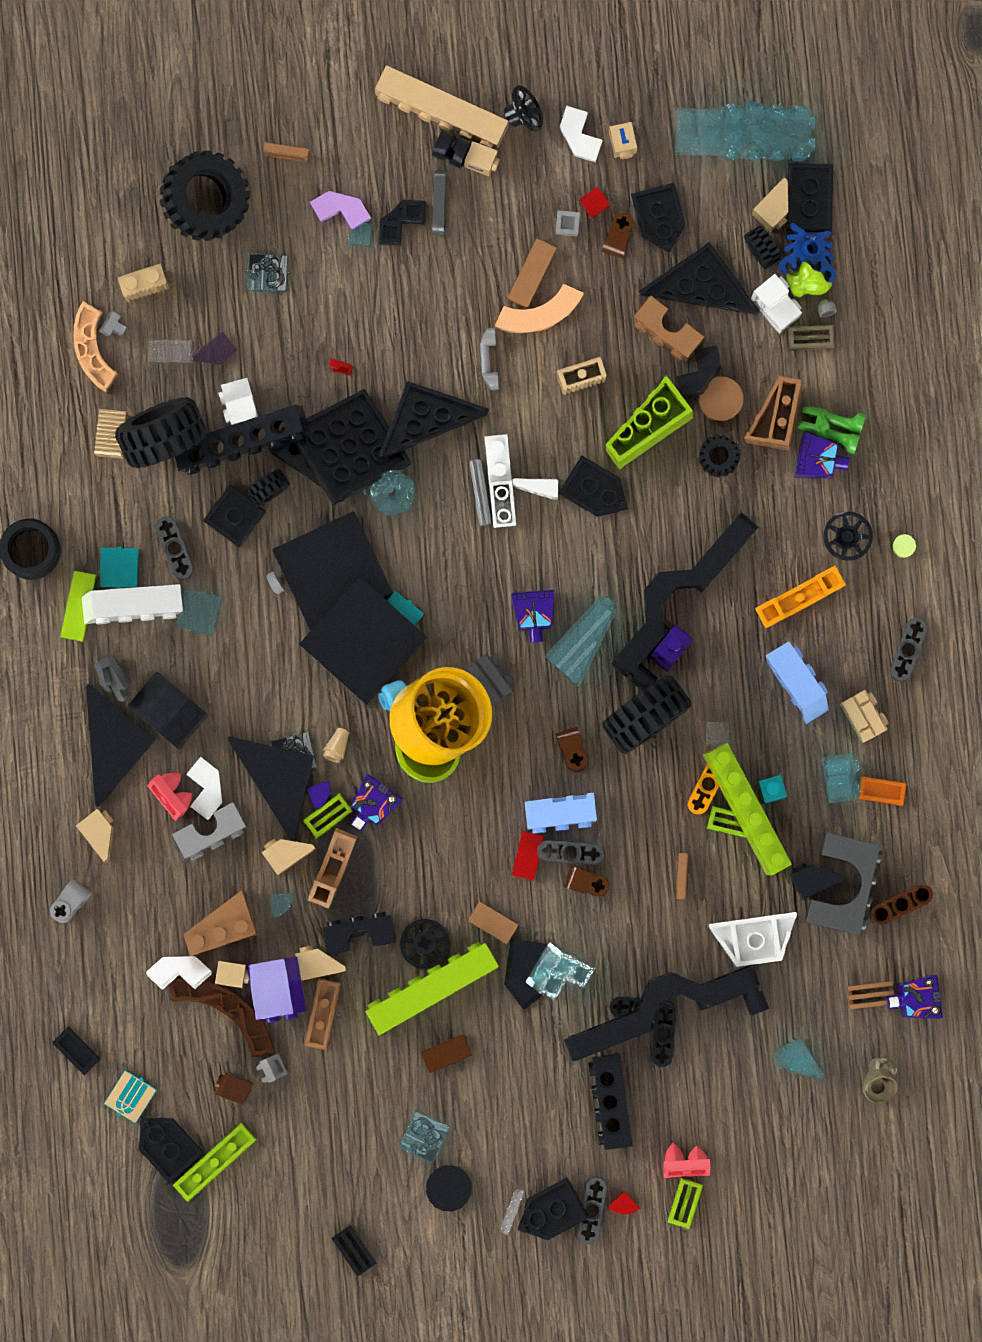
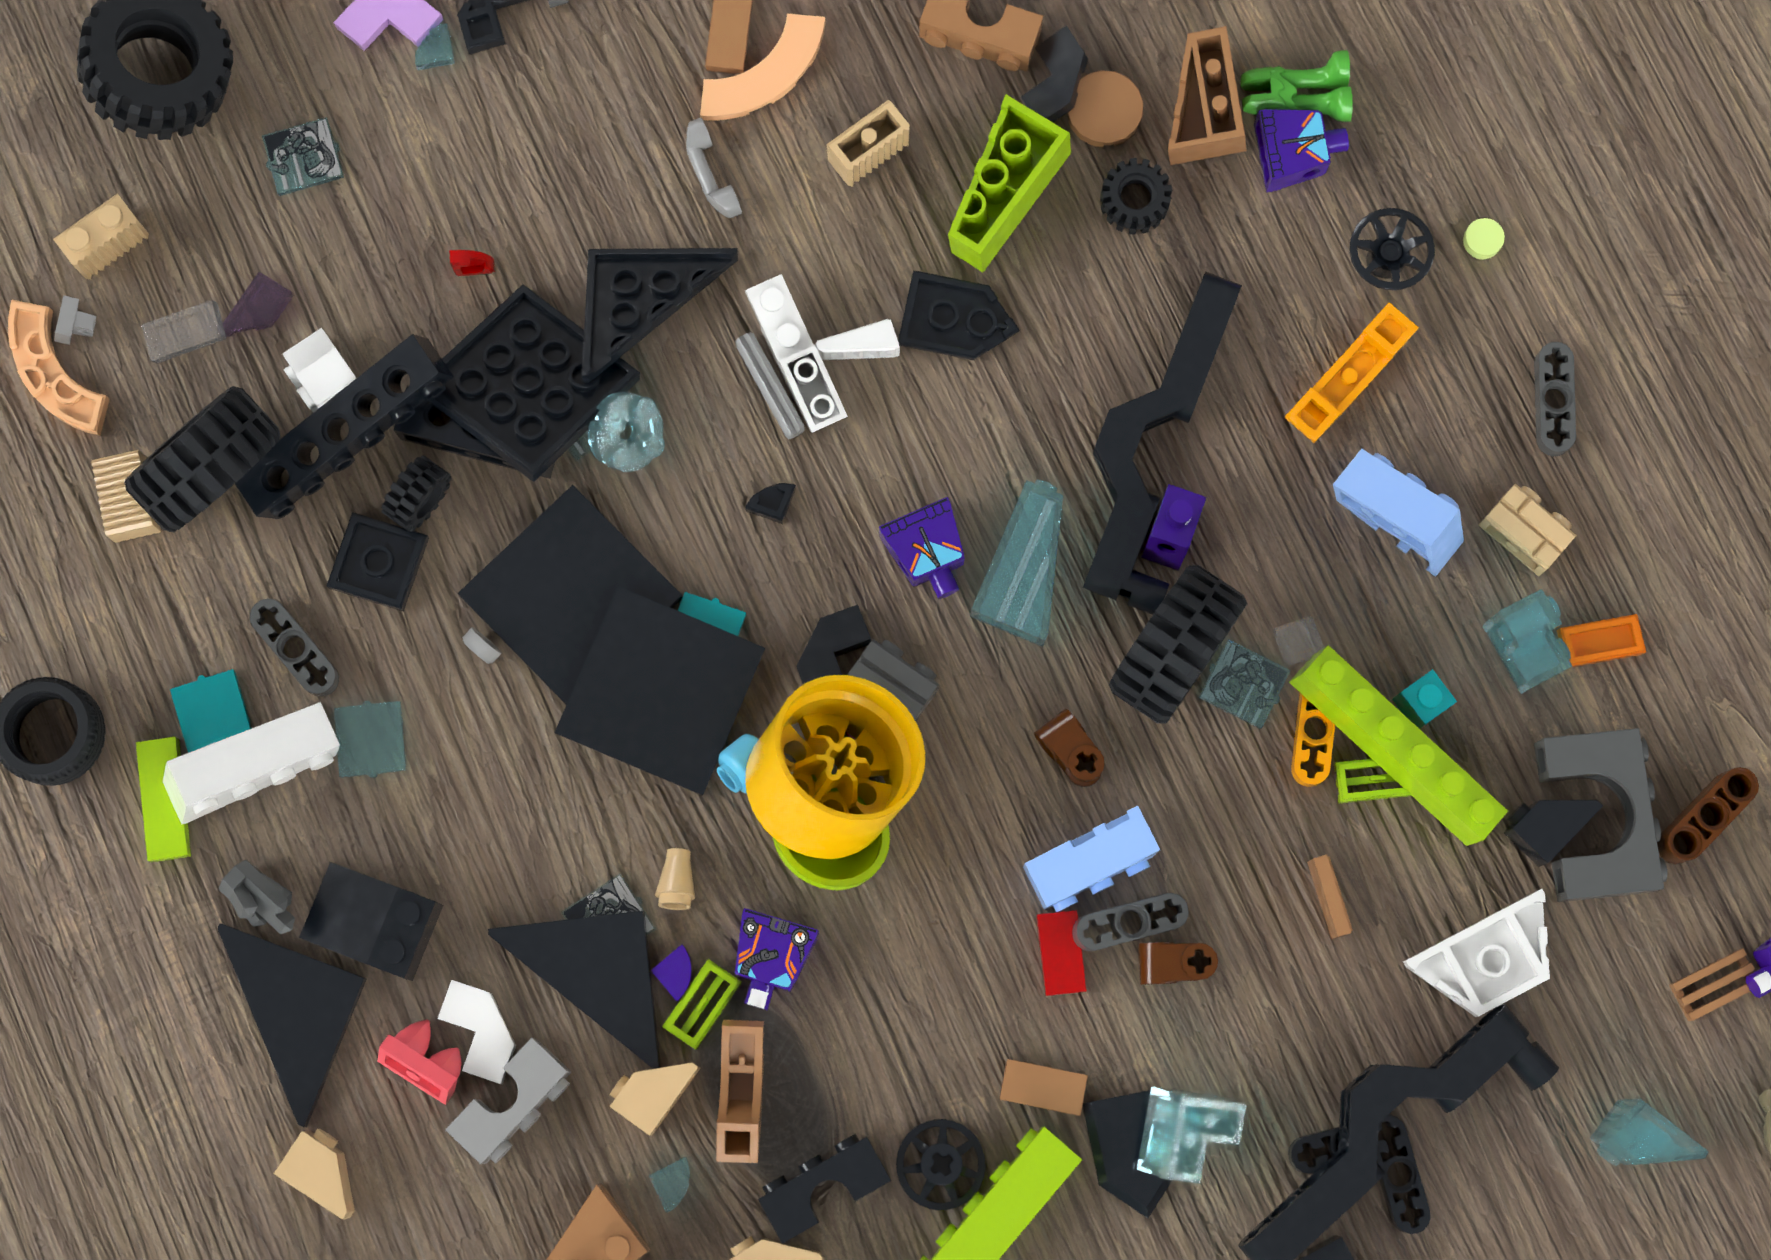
camera: 20 degrees left, 5 degrees down
(459, 557) = (772, 502): none -> black tile
(464, 644) = (832, 637): none -> black tile
(679, 746) = (1244, 684): none -> clear light blue piece

